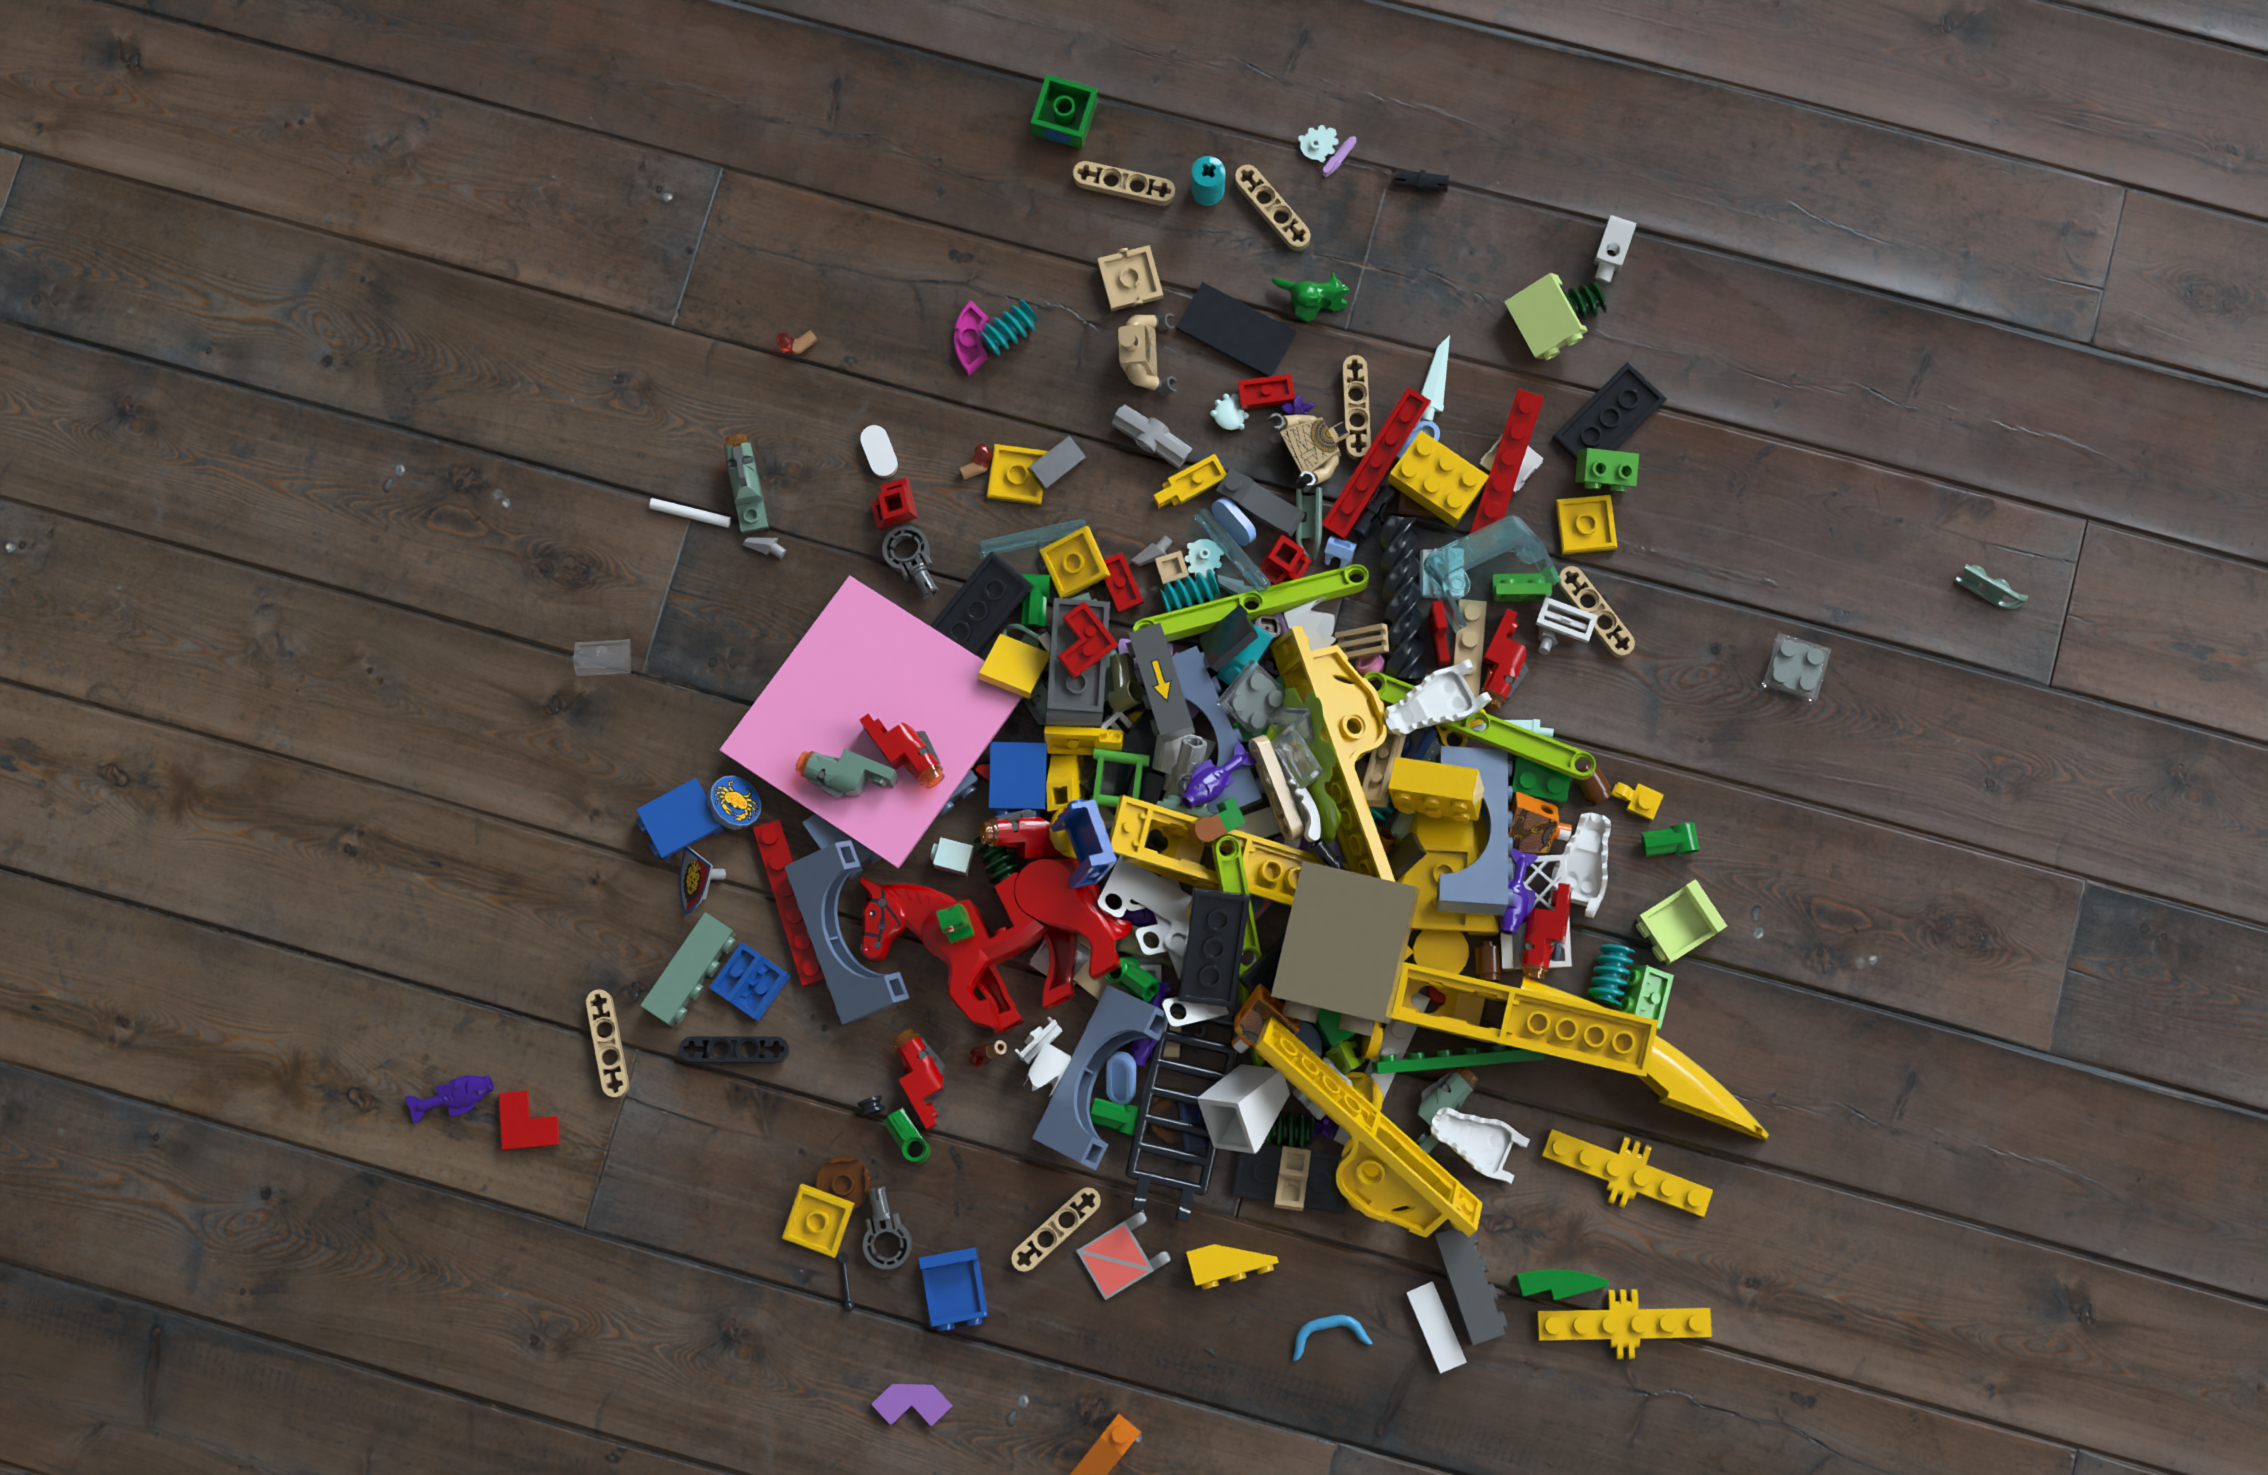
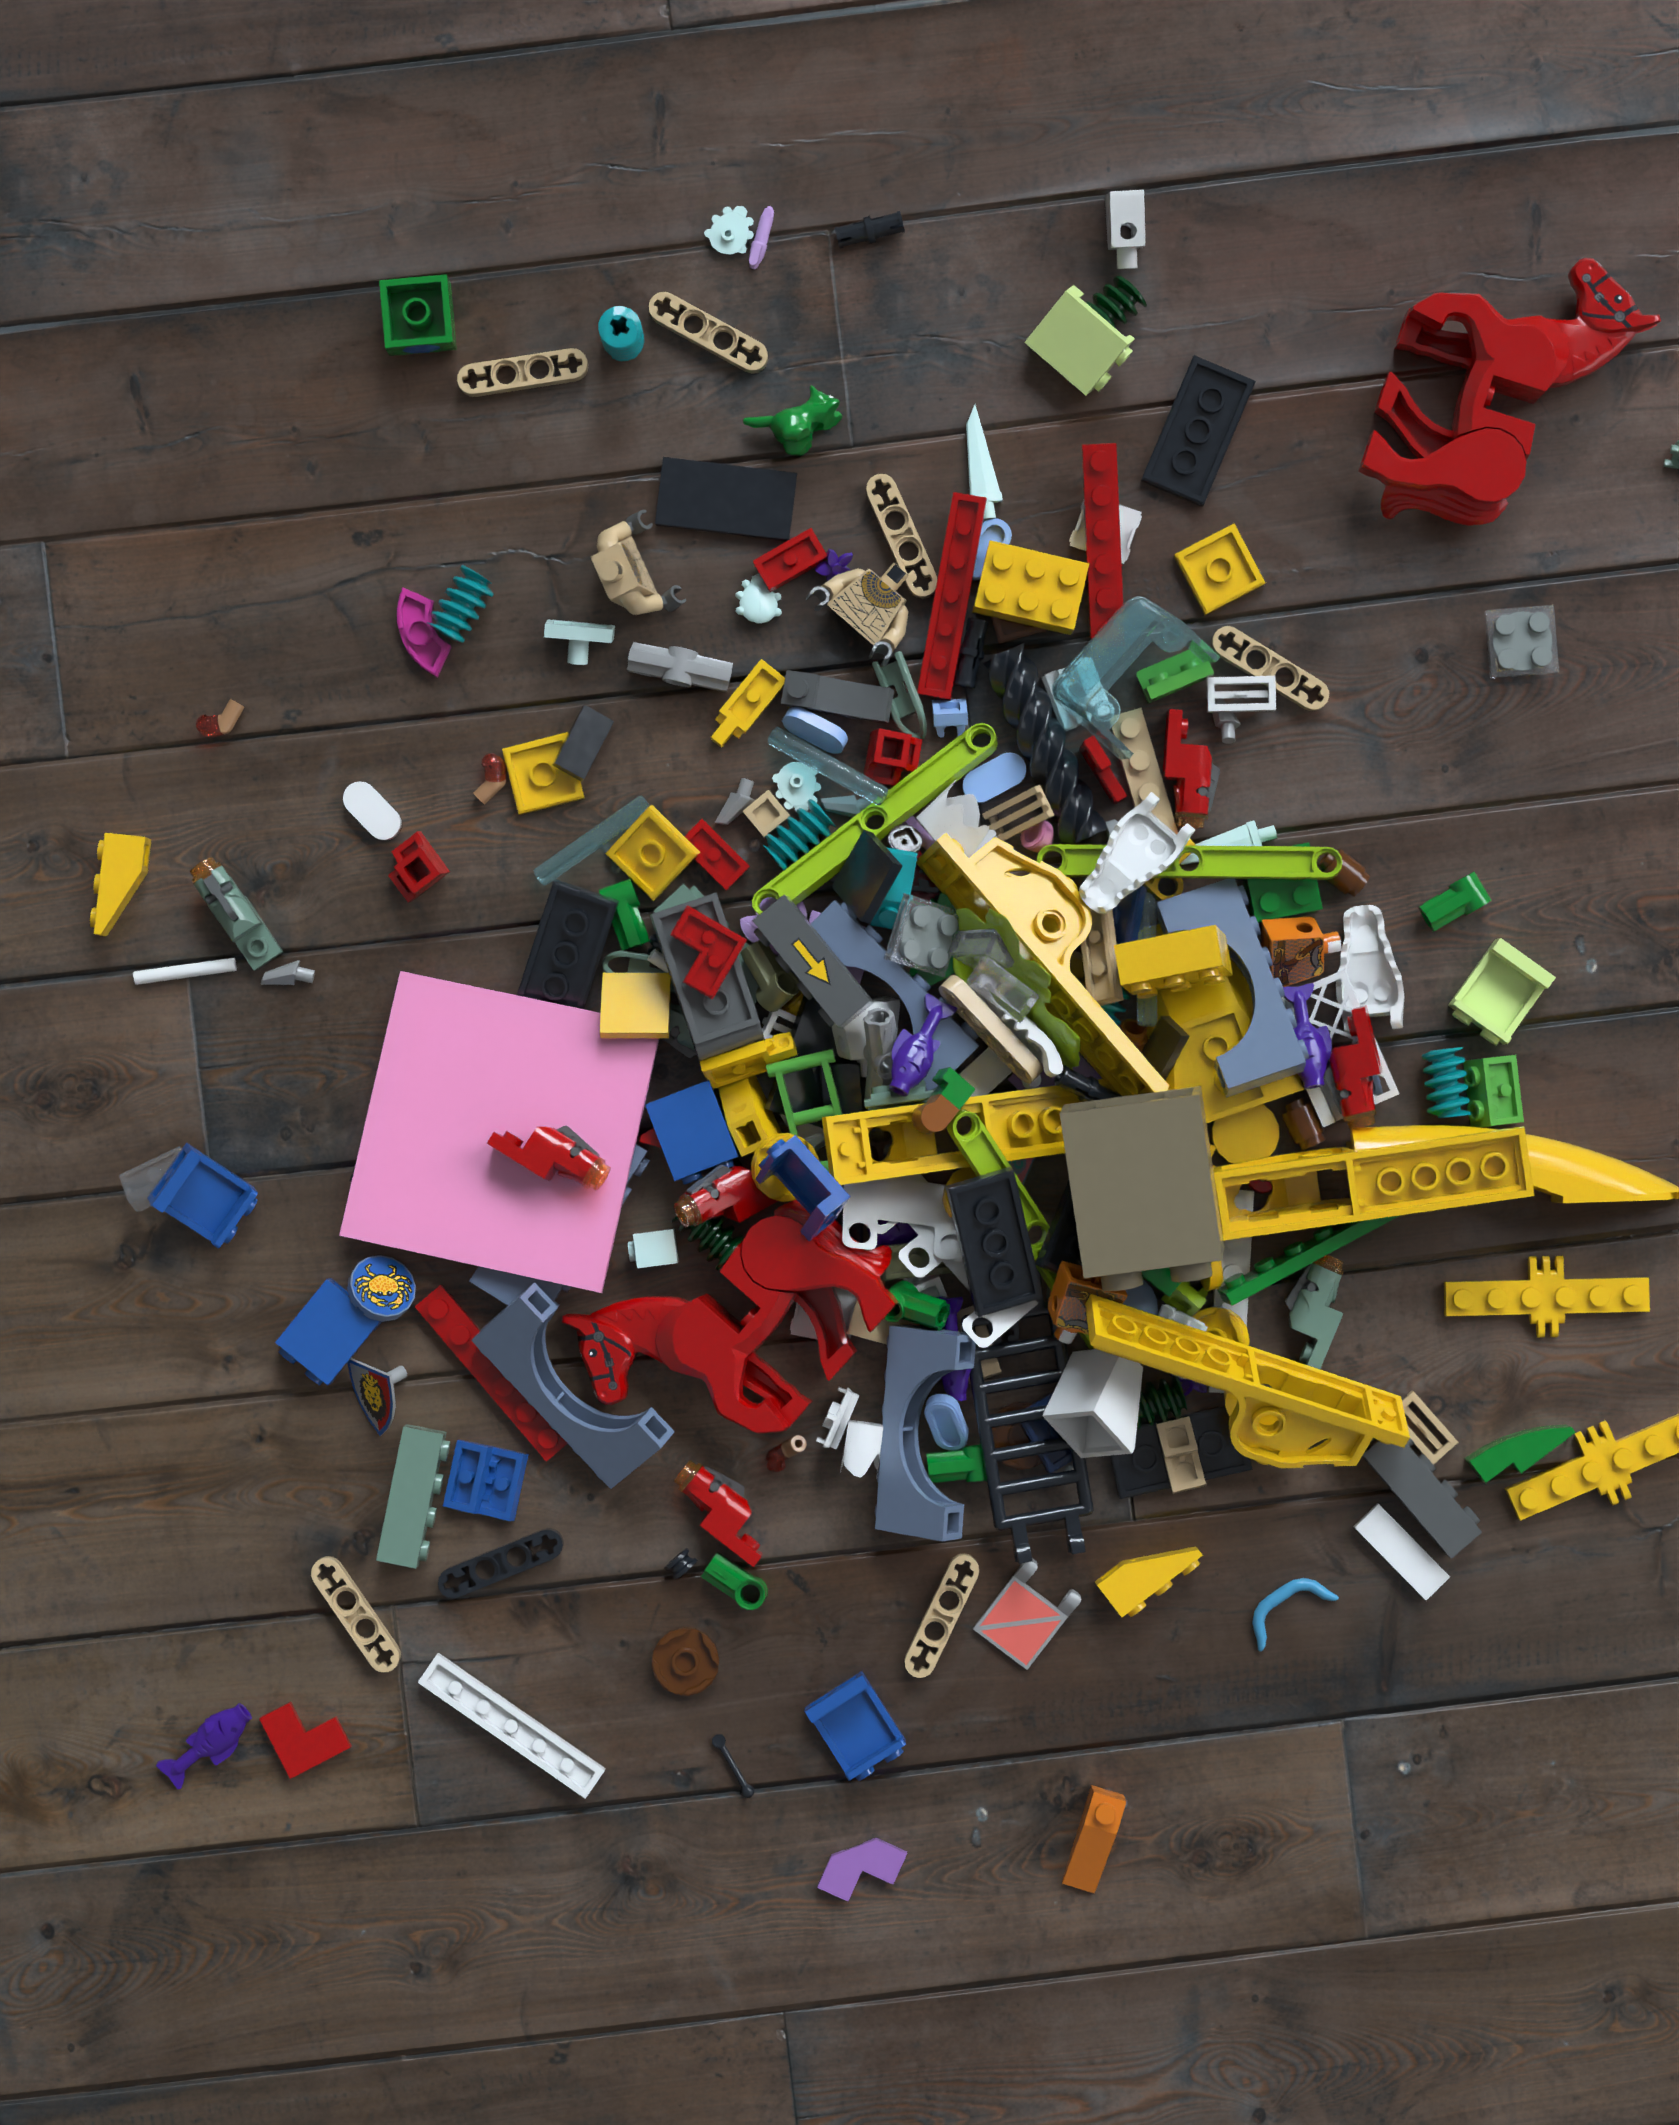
camera: 25 degrees left, 10 degrees up
(631, 680) = (203, 1196): none -> blue panel
(675, 422) = (122, 871): none -> yellow slope
(689, 1178) = (511, 1725): none -> white plate
(818, 1220) = (675, 1713): yellow tile -> none
(845, 774) = (496, 1214): sand green plate -> none
(881, 1212) = (741, 1679): dark grey pin -> none
(914, 563) = (479, 937): dark grey pin -> none
(955, 923) = (694, 1334): green leg -> none
(1085, 386) = (579, 637): none -> light aqua tile
(1130, 278) = (577, 486): tan plate -> none
(1355, 610) = (994, 777): none -> light blue tile
(1478, 1140) = (1370, 1331): white animal -> none
(1508, 1253) = (1442, 1449): none -> tan tile
(1607, 468) = (1218, 496): bright green brick -> none
(1641, 800) = (1405, 868): yellow plate -> none
(1871, 454) = (1484, 457): none -> red animal

